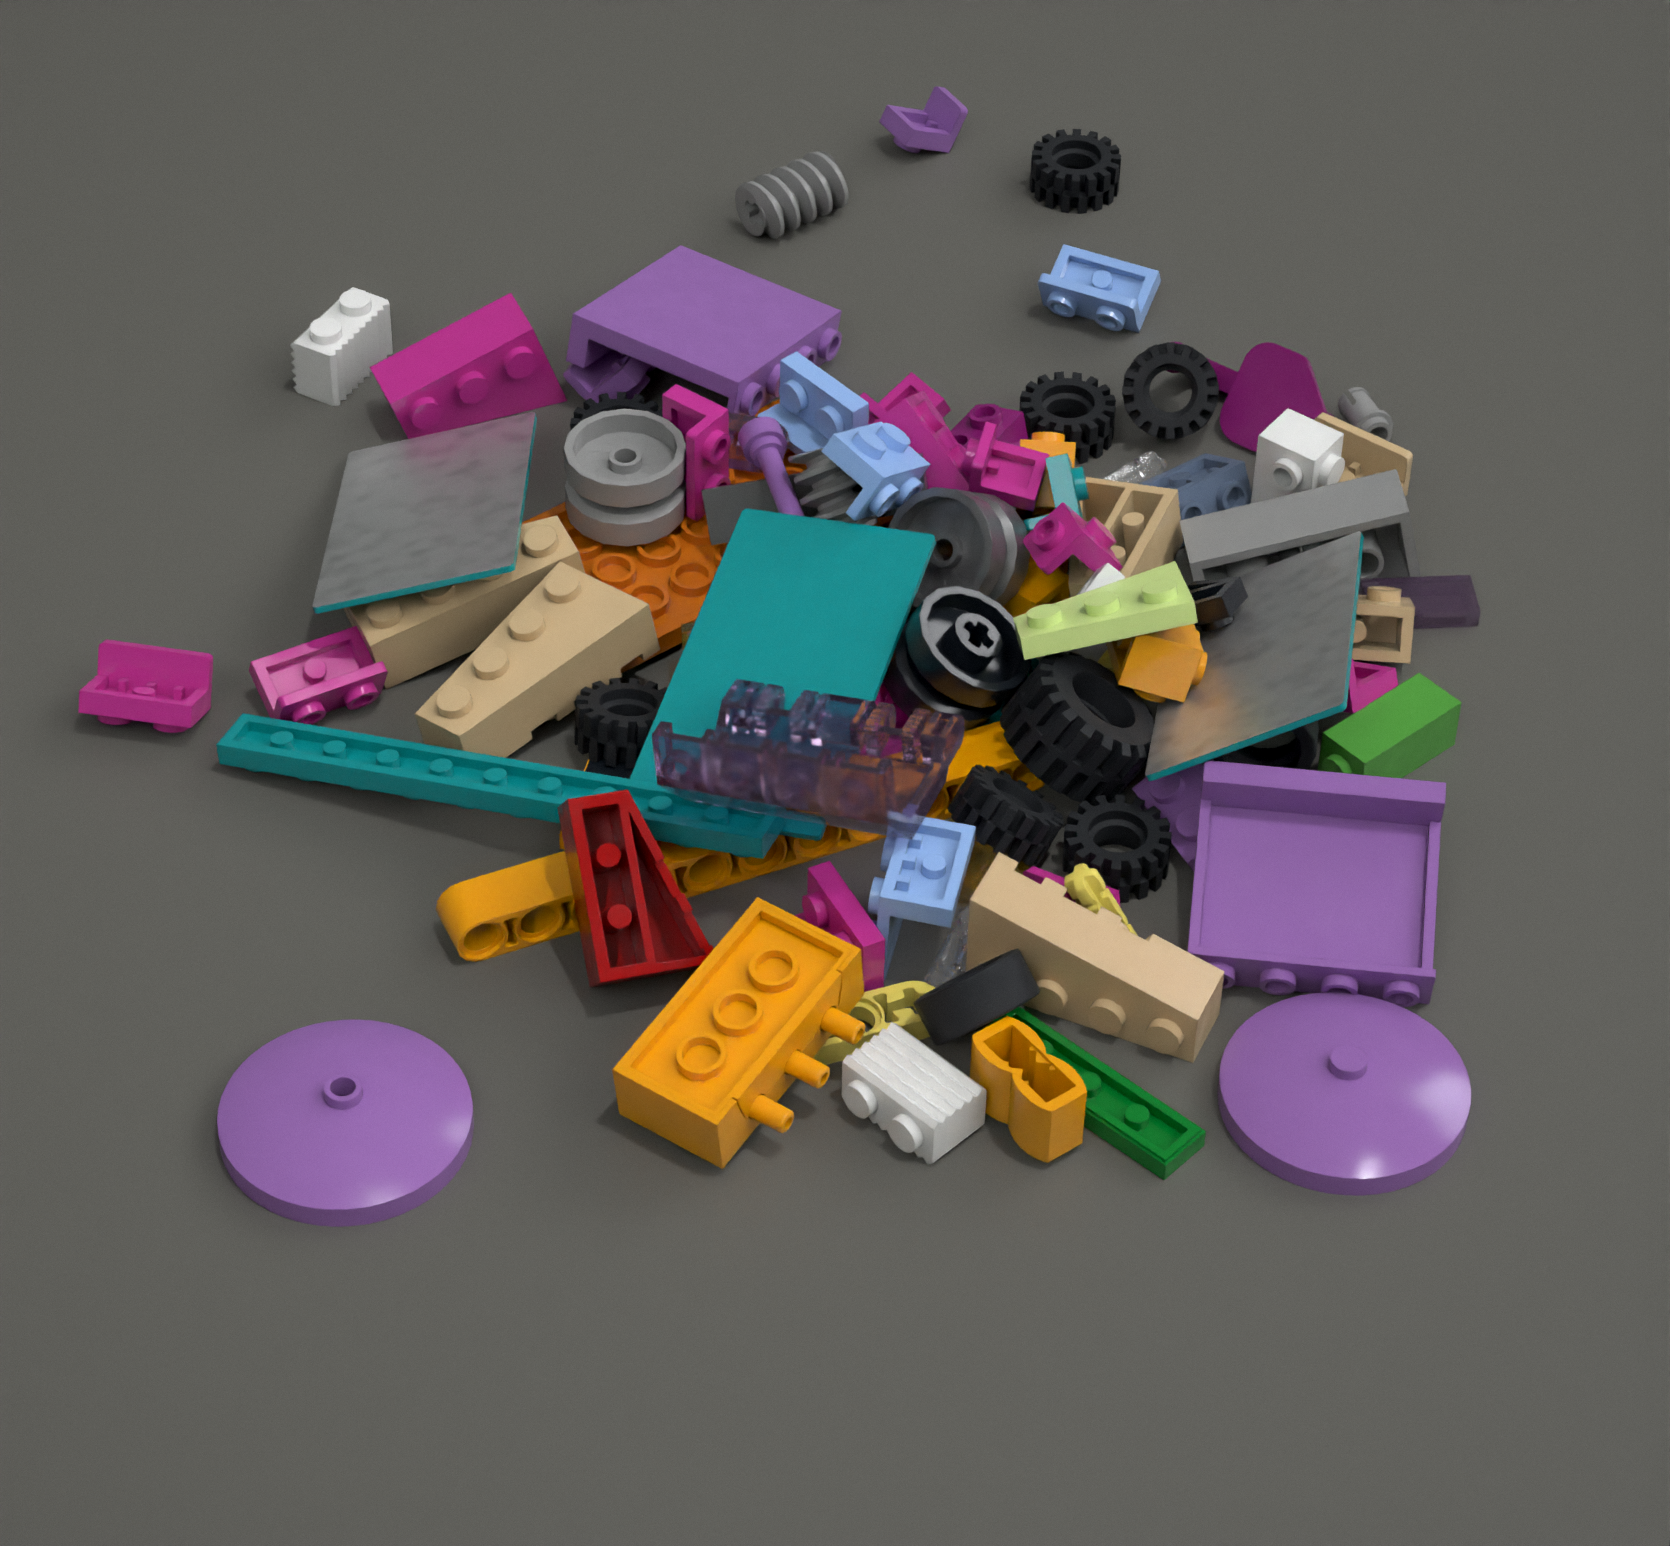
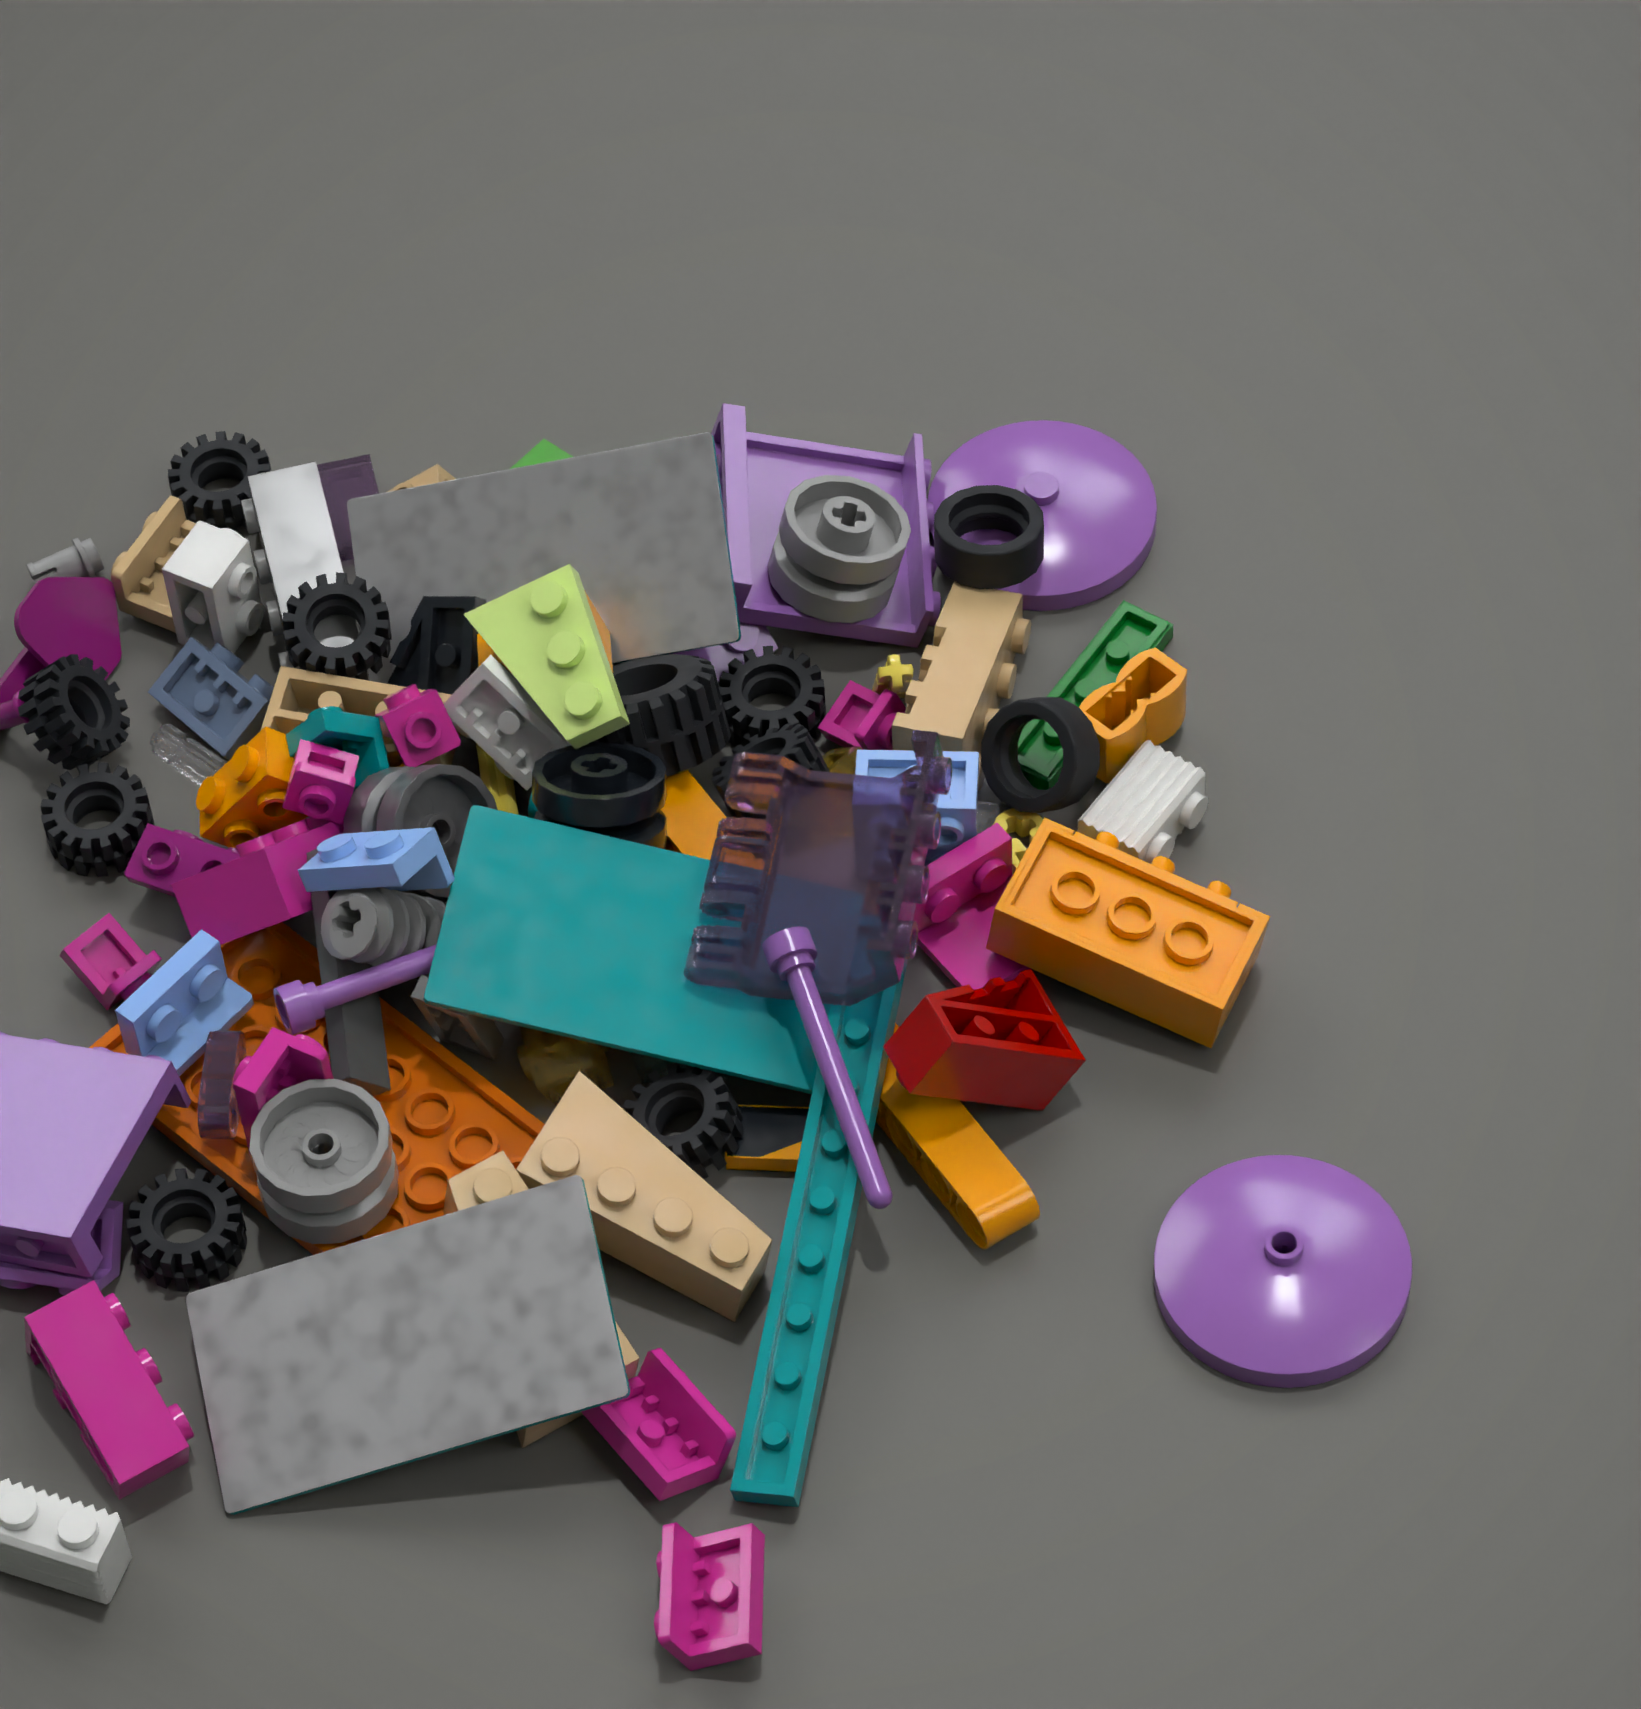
camera: 95 degrees left, 10 degrees up
(586, 773) = (792, 956): none -> medium lavender piece
(1218, 547) = (334, 599): none -> black tyre
(1256, 1024) = (989, 564): none -> black tyre
(1260, 868) = (838, 548): none -> light grey wheel
(1475, 504) = (213, 462): none -> black tyre

